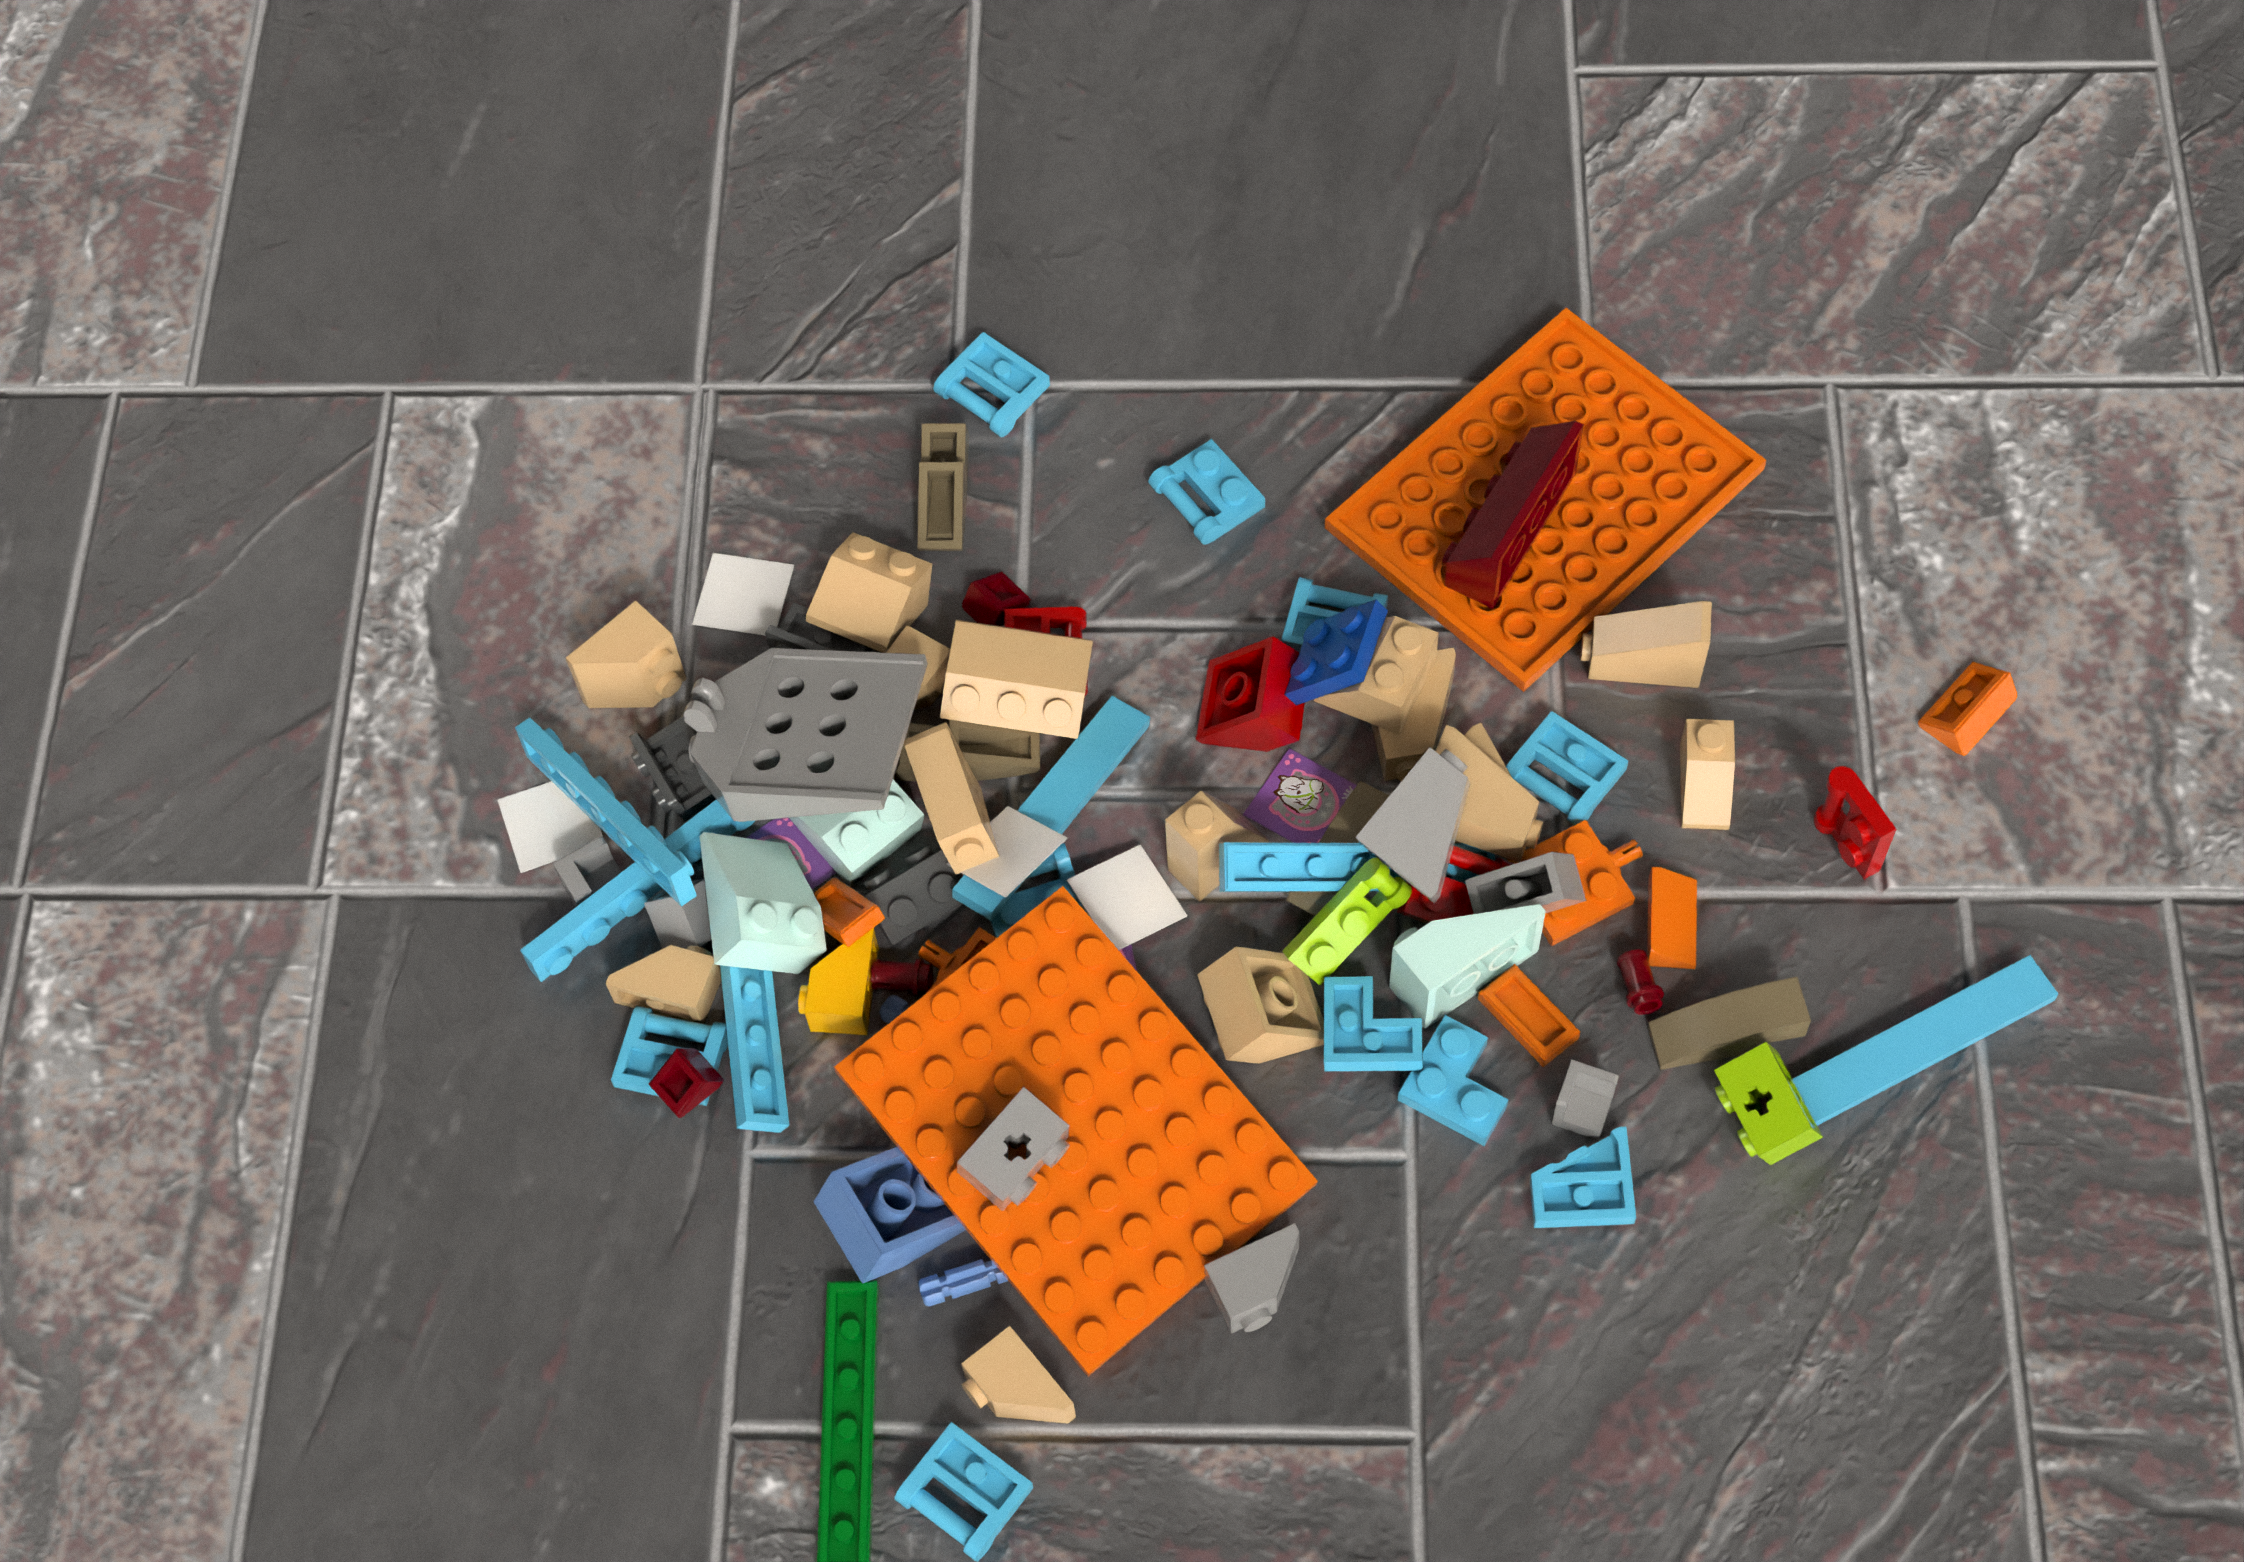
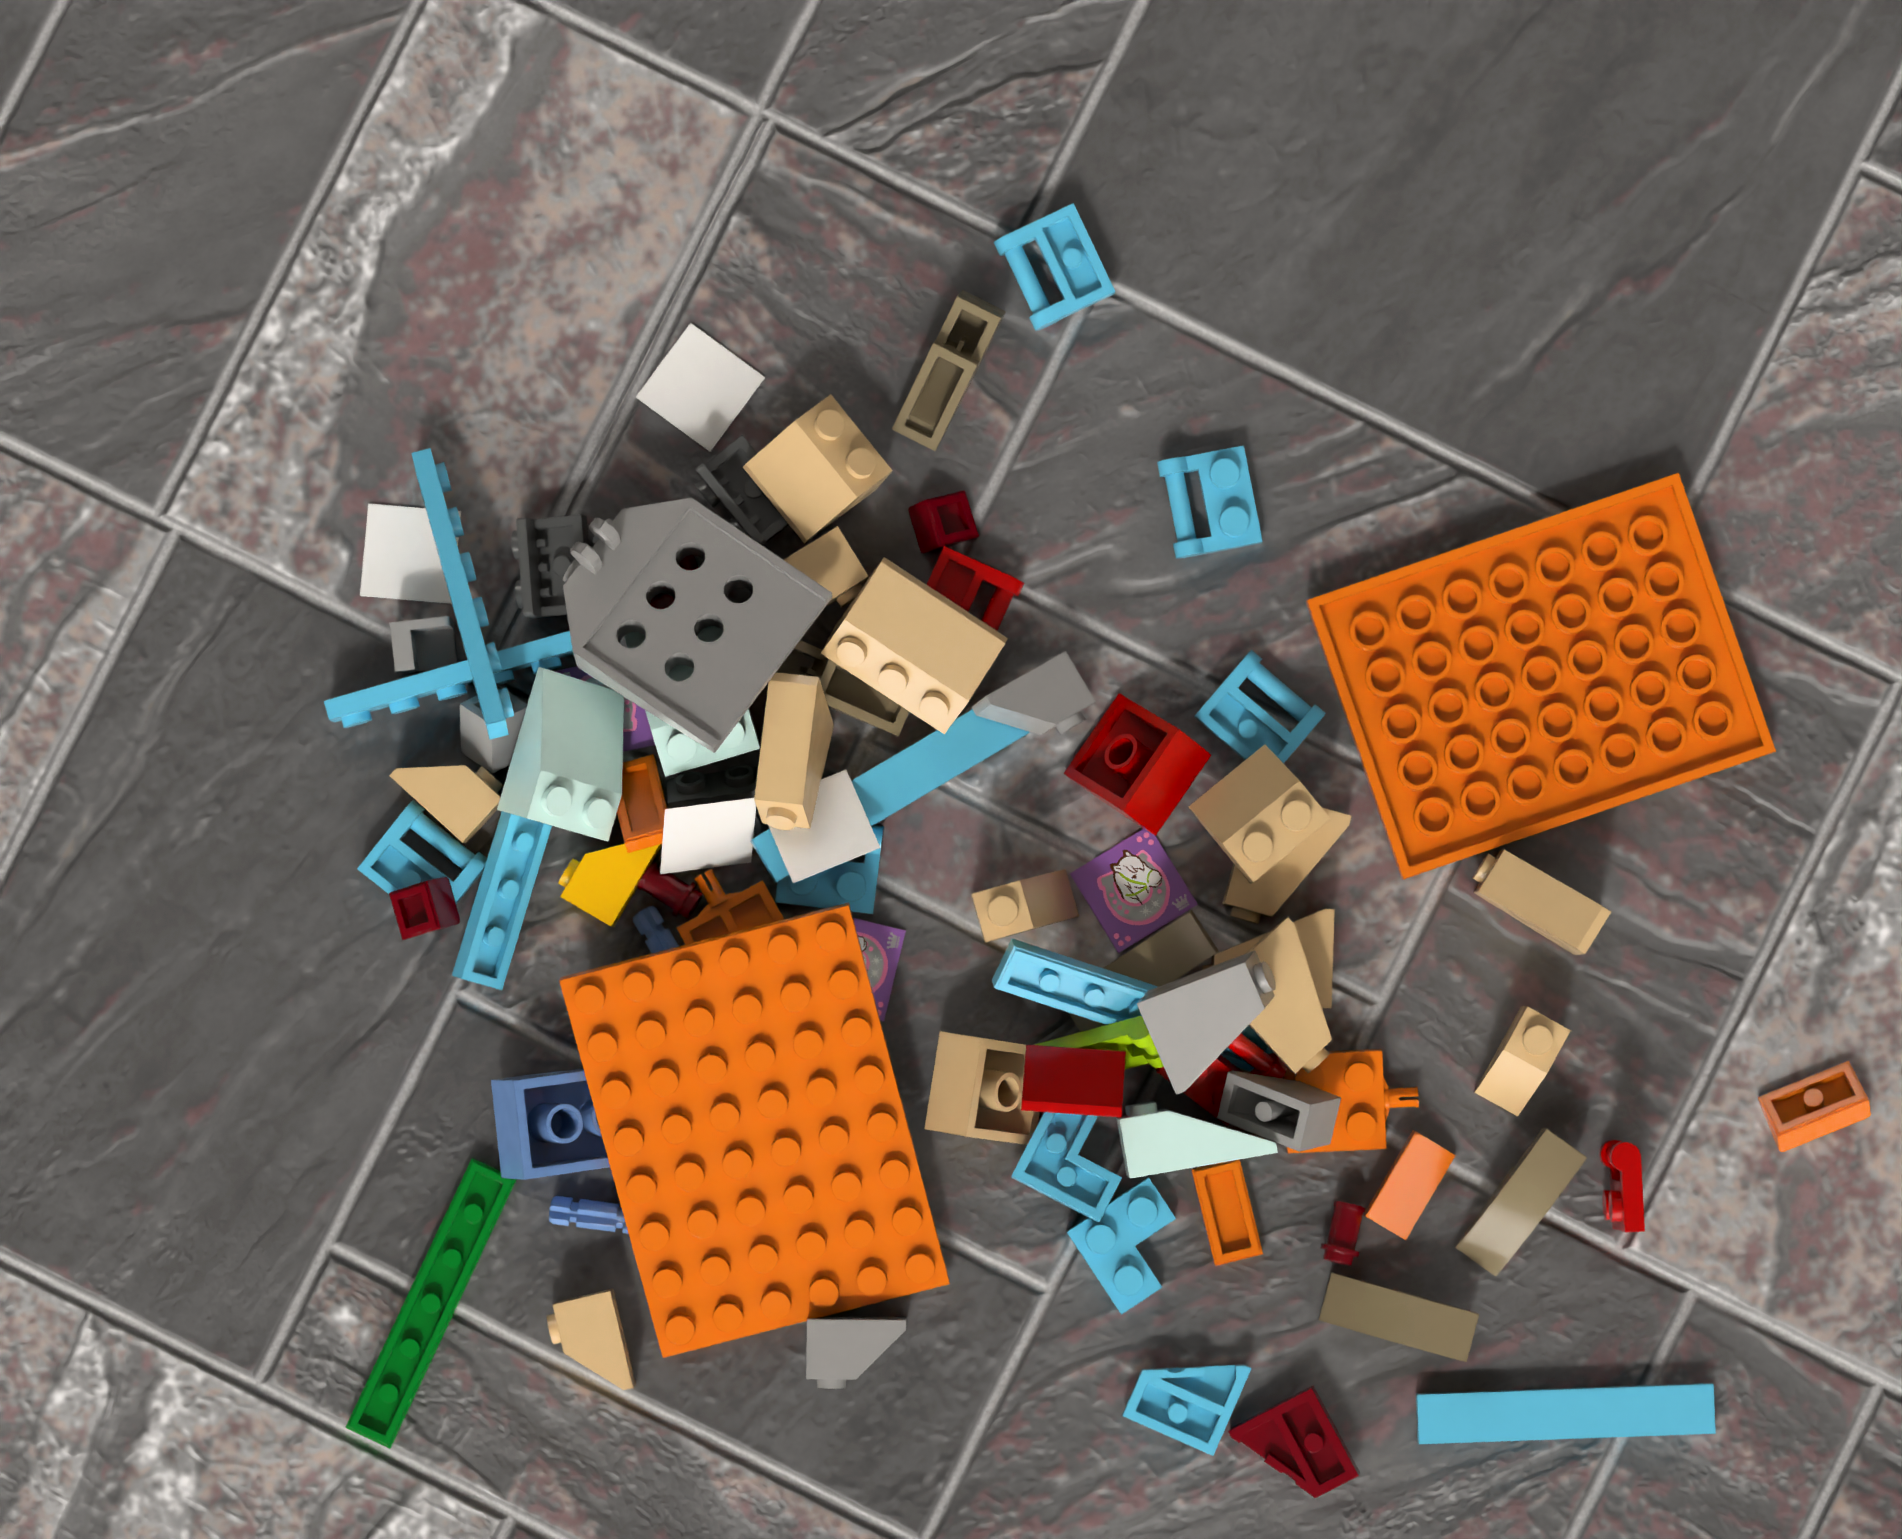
camera: 20 degrees right, 25 degrees up
(627, 663) = (553, 434): tan slope -> none
(912, 903) = (707, 835): none -> white sticker
(973, 1476) = (521, 1401): medium azure plate -> none
(1021, 1122) = (699, 1123): light grey brick -> none
(1127, 897) = (915, 913): white sticker -> none
(1143, 681) = (1040, 698): none -> light grey slope
(1336, 652) = (1229, 778): blue plate -> none
(1336, 946) = (1073, 1081): none -> red slope
(1513, 512) = (1485, 701): dark red slope -> none
(1573, 757) = (1409, 978): medium azure plate -> none
(1585, 1099) = (1227, 1324): light grey panel -> none
(1706, 1173) = (1301, 1442): none -> dark red wing
(1775, 883) = (1520, 1201): none -> dark tan slope
(1788, 1122) = (1401, 1390): lime brick -> none

